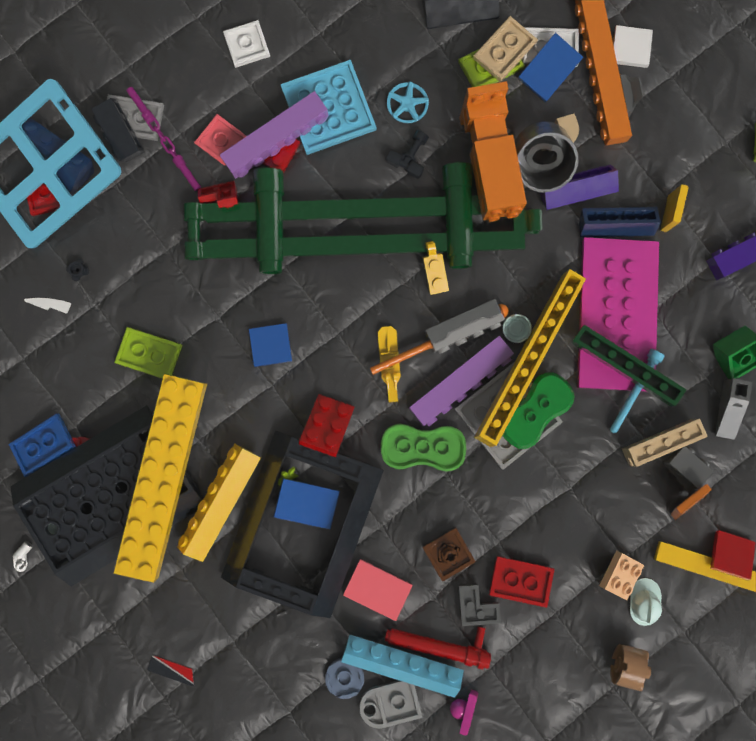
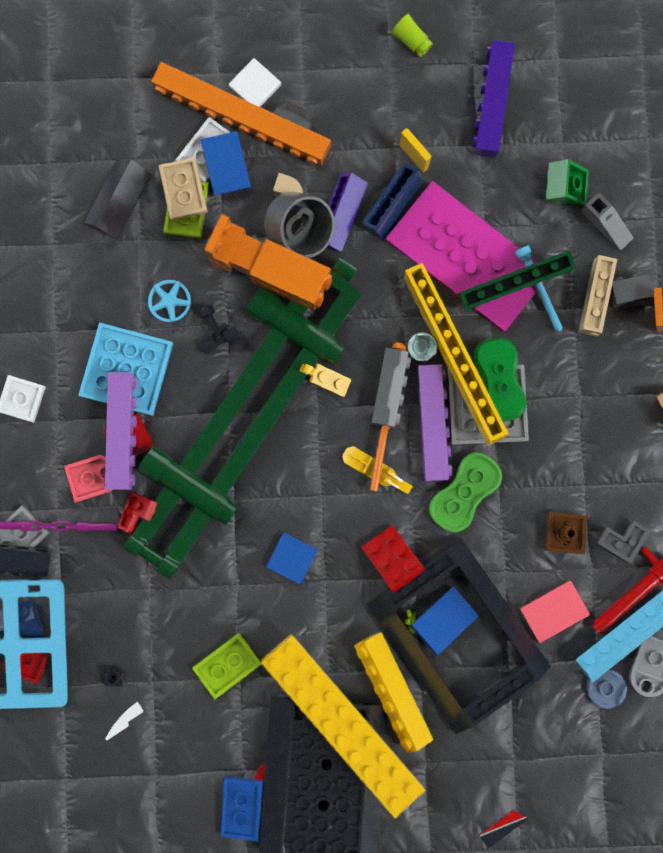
camera: 50 degrees left, 0 degrees up
(521, 581) = (628, 490): red plate -> none

